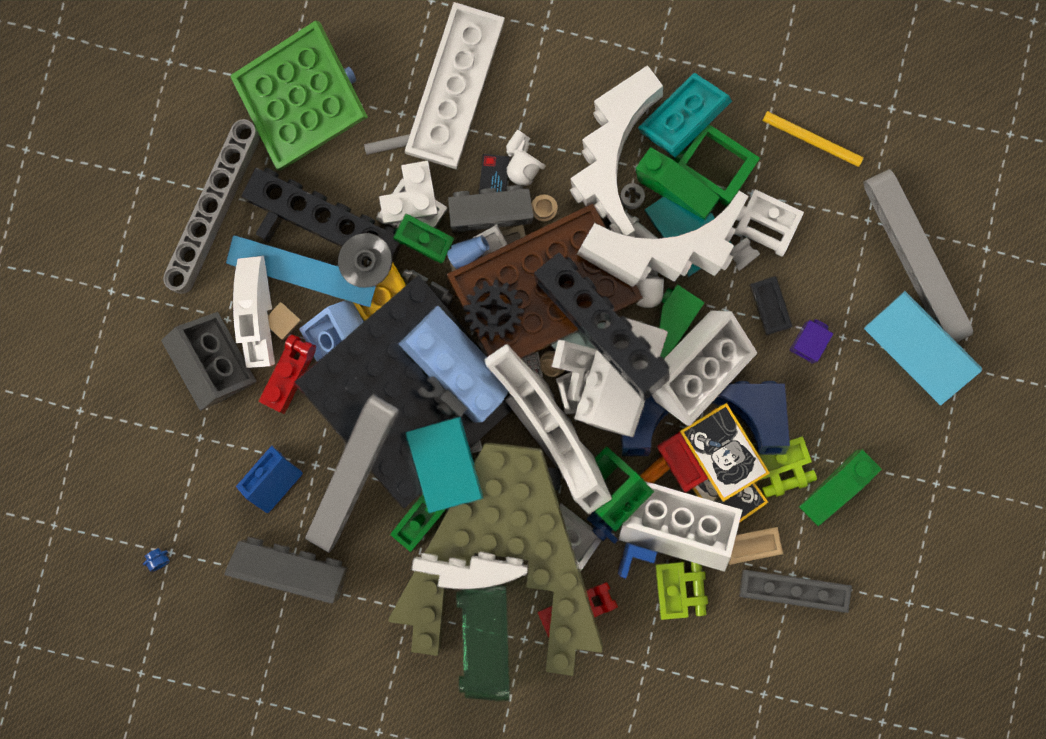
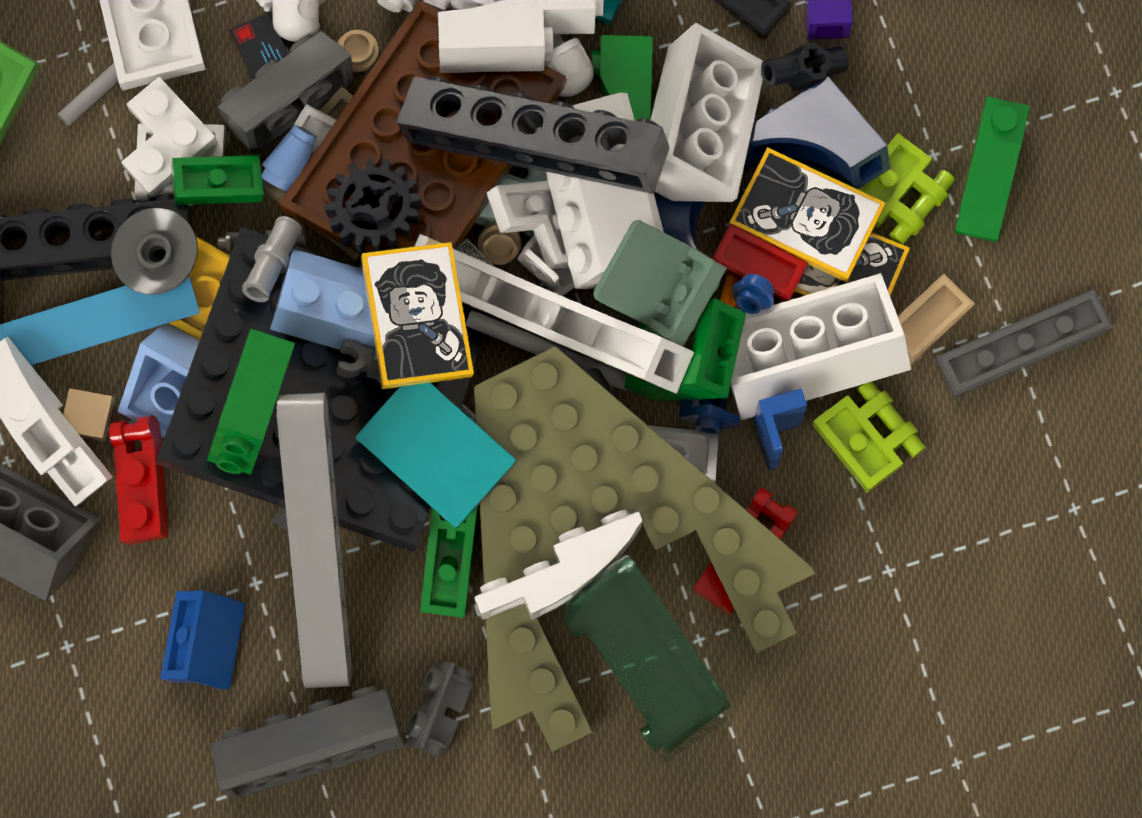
camera: 30 degrees left, 10 degrees down
(356, 599) = (441, 692): none -> dark grey hinge
(358, 386) = (250, 402): none -> green window
(422, 306) = (272, 259): none -> light grey pin
(476, 390) = (417, 315): none -> tile
(617, 451) = (659, 281): none -> sand green bracket
(667, 478) = (753, 293): none -> blue plate
(776, 368) = (804, 66): none -> black axle

